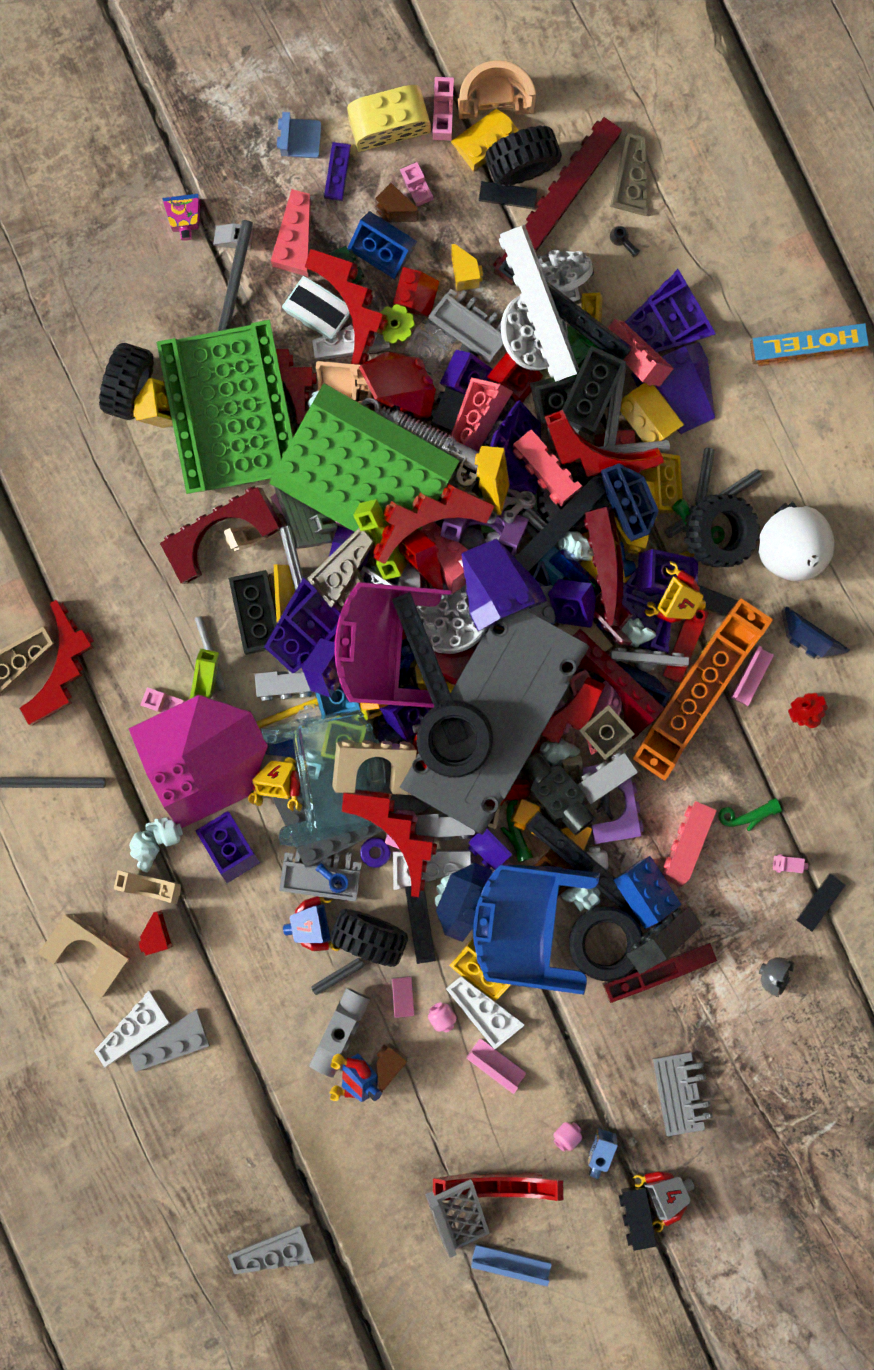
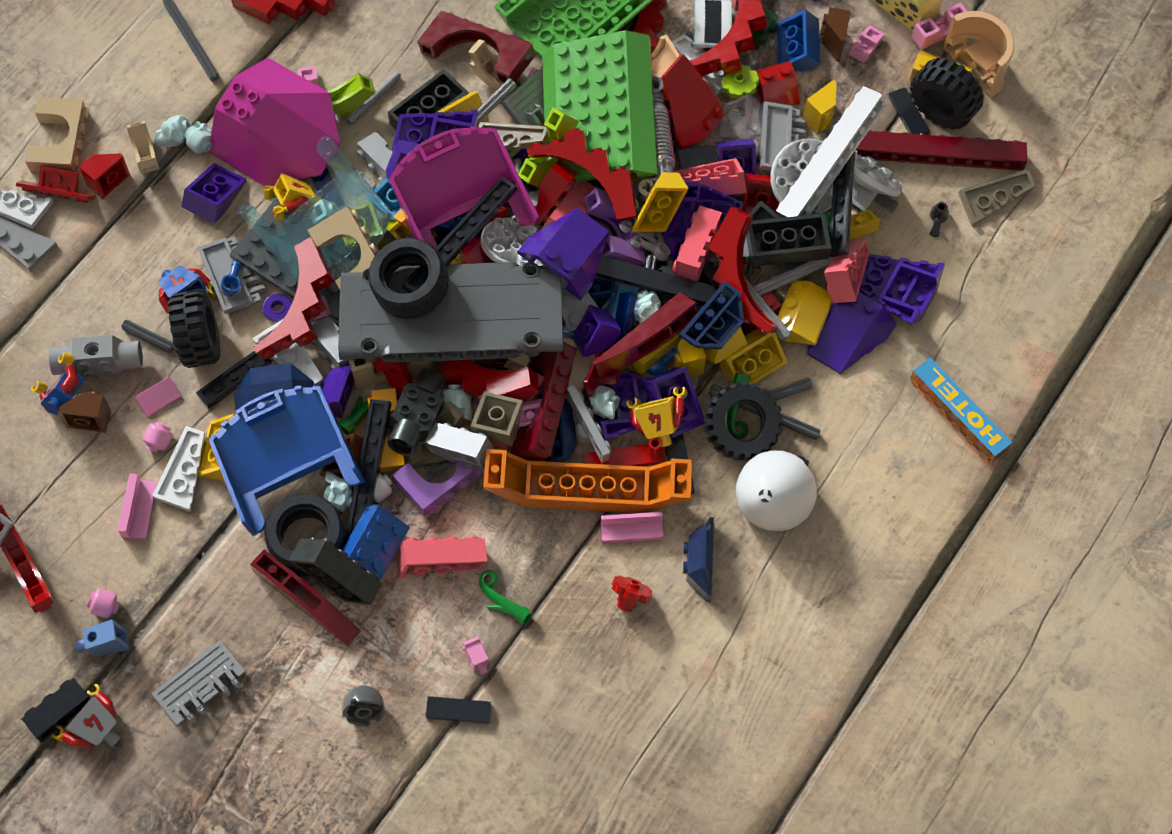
camera: 60 degrees right, 20 degrees down
(137, 980) = (58, 182): none -> red bracket

